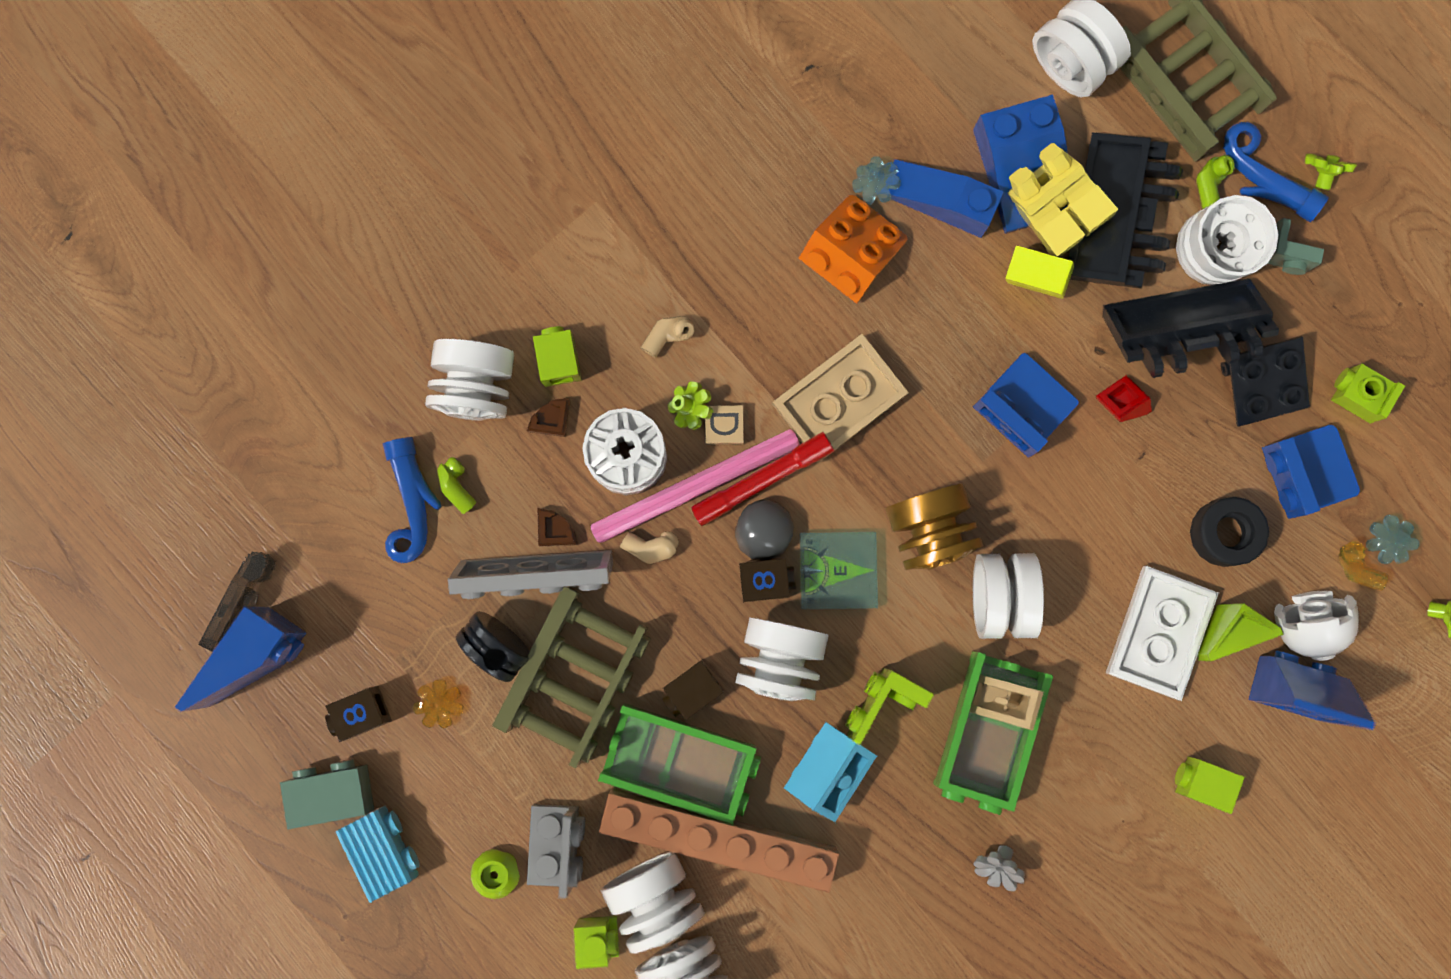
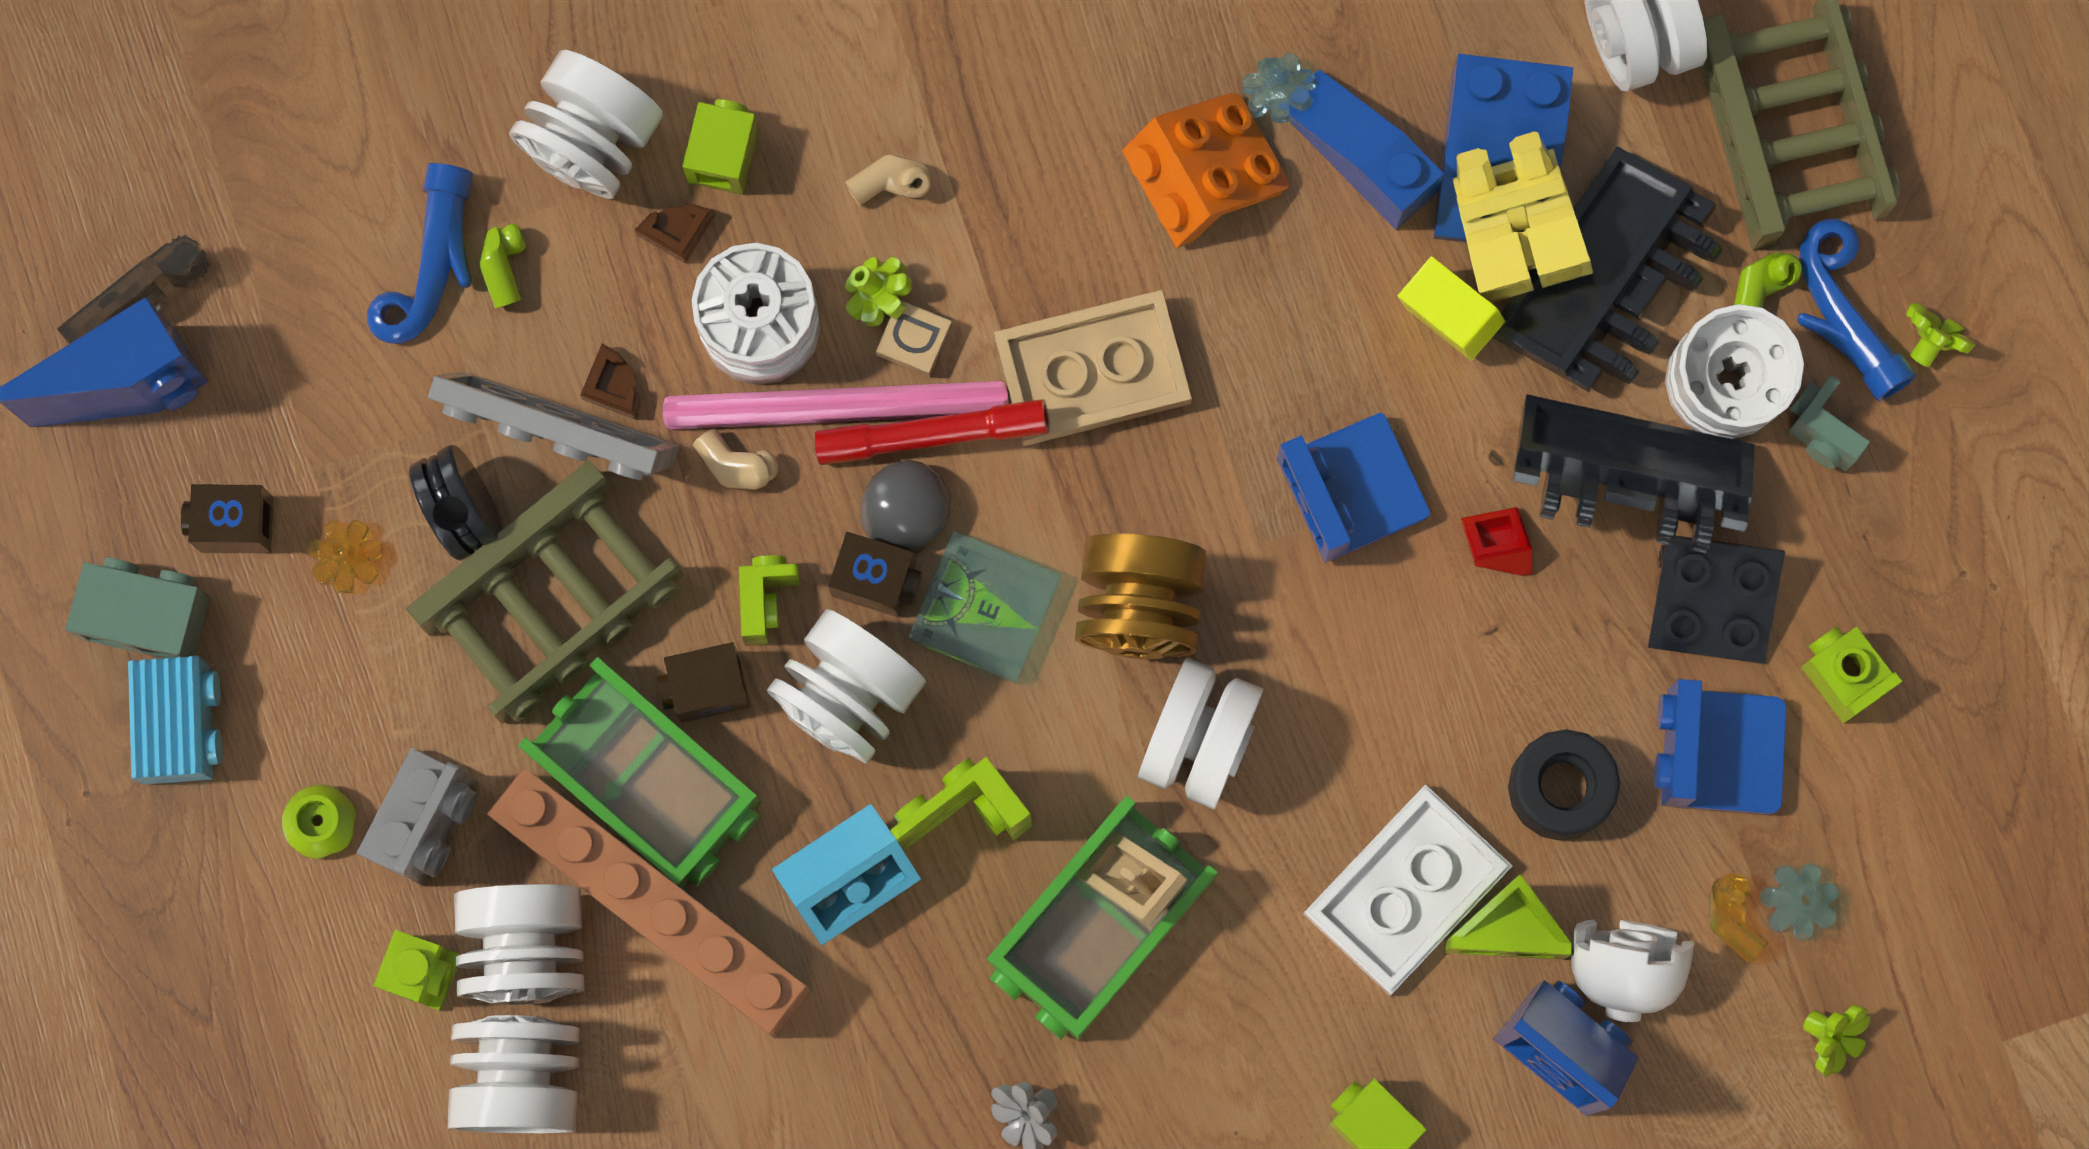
camera: 25 degrees right, 5 degrees down
(704, 630) = (760, 608): none -> lime bracket

